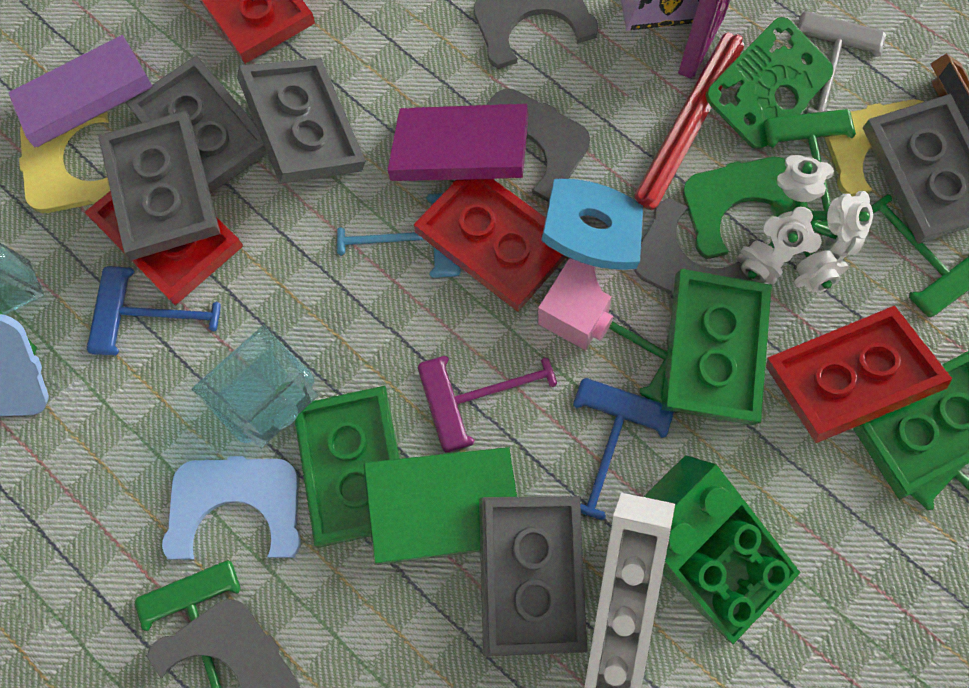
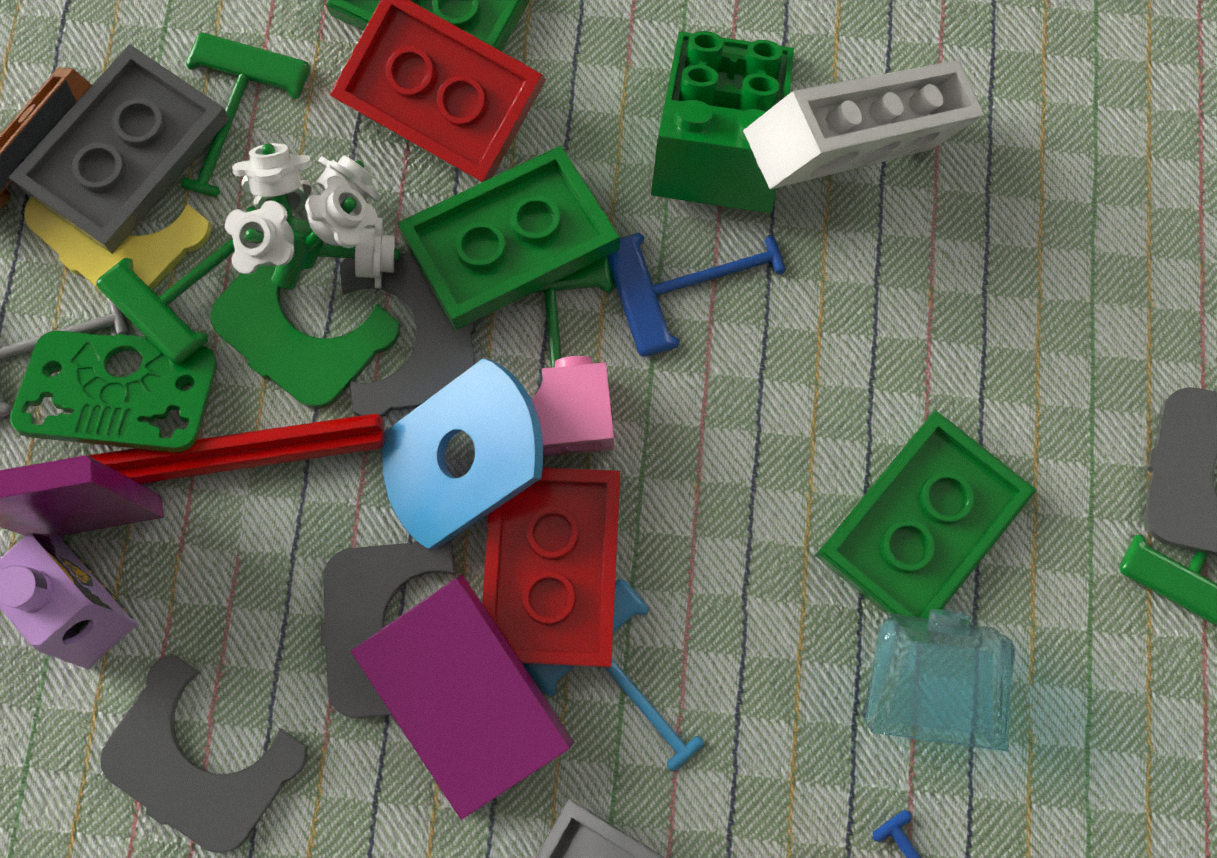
camera: 130 degrees left, 5 degrees up
(207, 484) = (1071, 663): light blue piece -> none
(432, 502) = (894, 391): green tile -> none
(444, 403) = (782, 479): magenta piece -> none
(532, 576) = (886, 257): dark grey tile -> none

